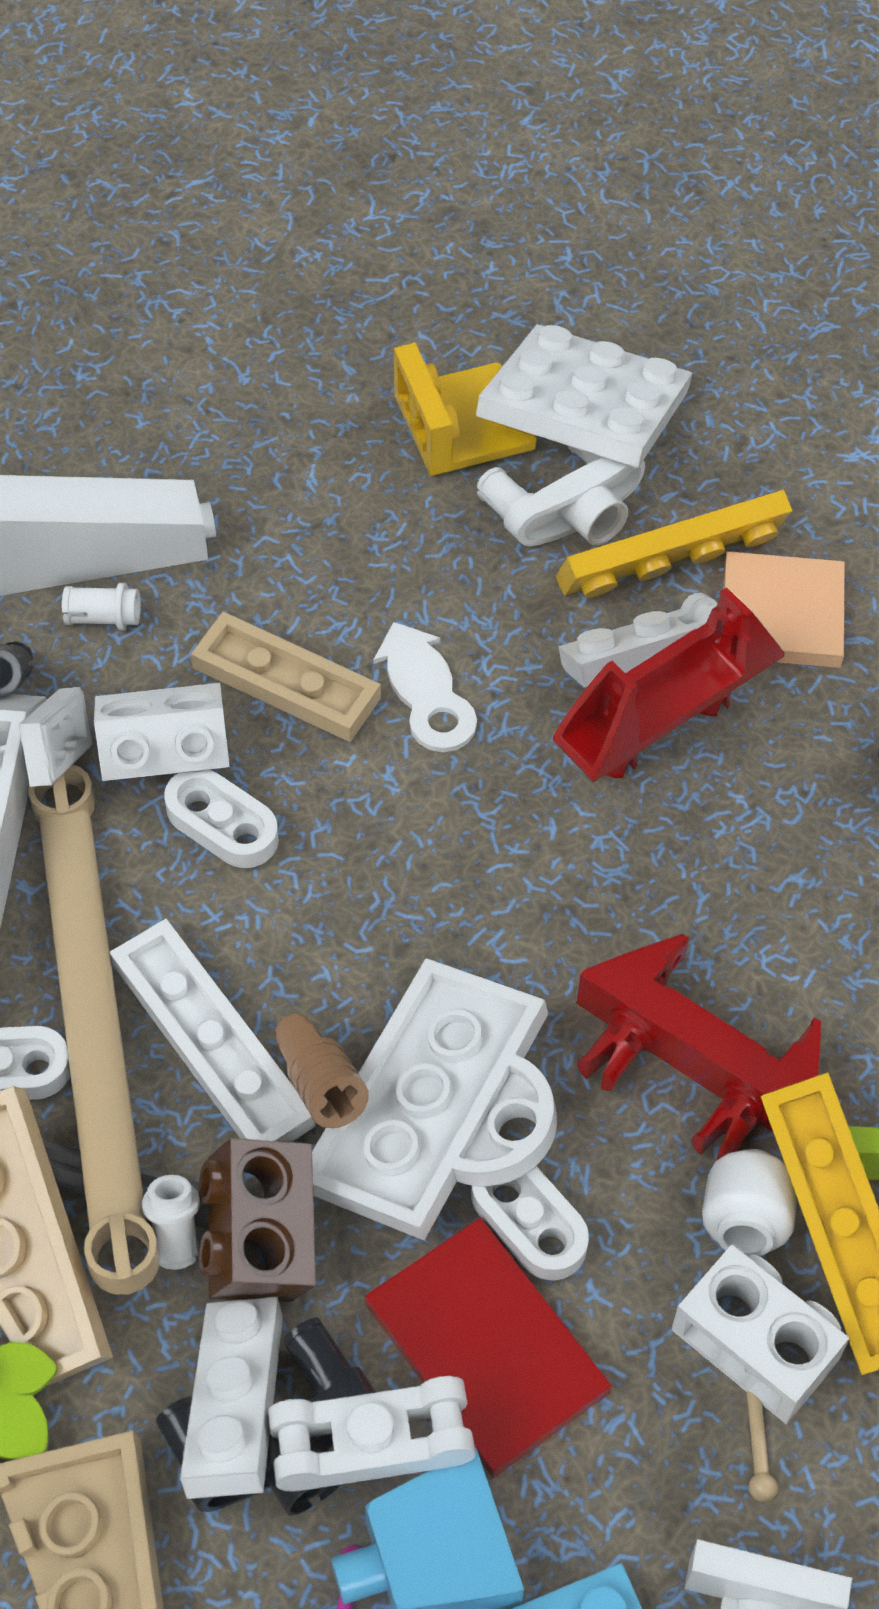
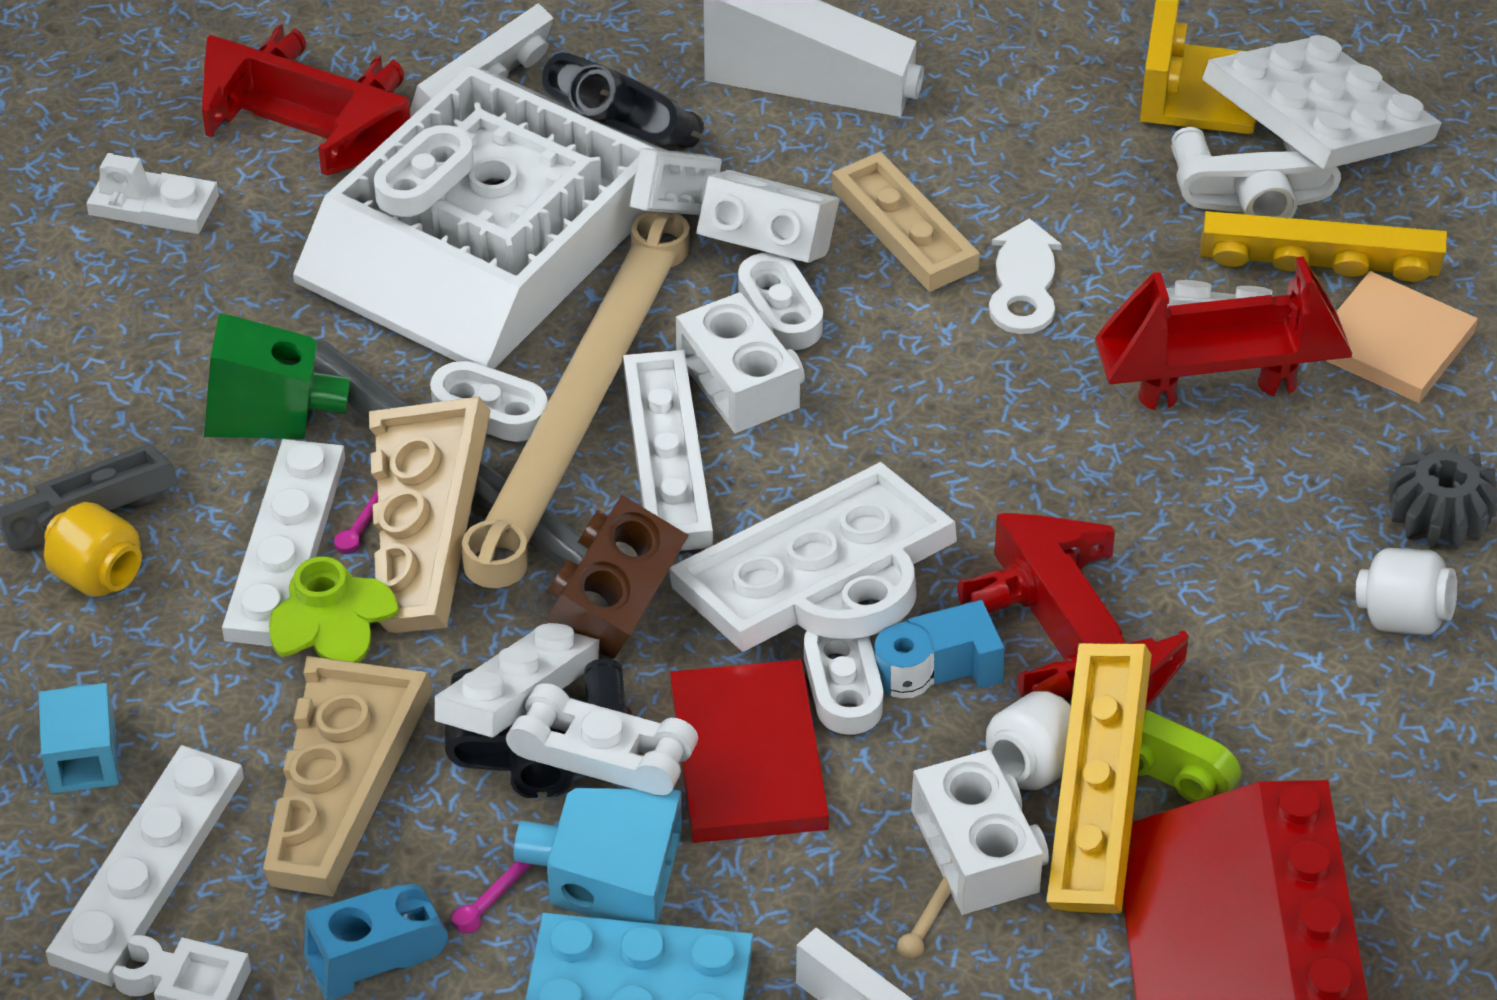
camera: 30 degrees right, 10 degrees down
(102, 606) = (784, 115): white pin -> none
(171, 1209) = (551, 543): white pin -> none
(216, 917) = (739, 362): none -> white brick
(321, 1073) = (743, 496): medium nougat hinge -> none
(603, 1139) = (939, 650): none -> dark azure leg

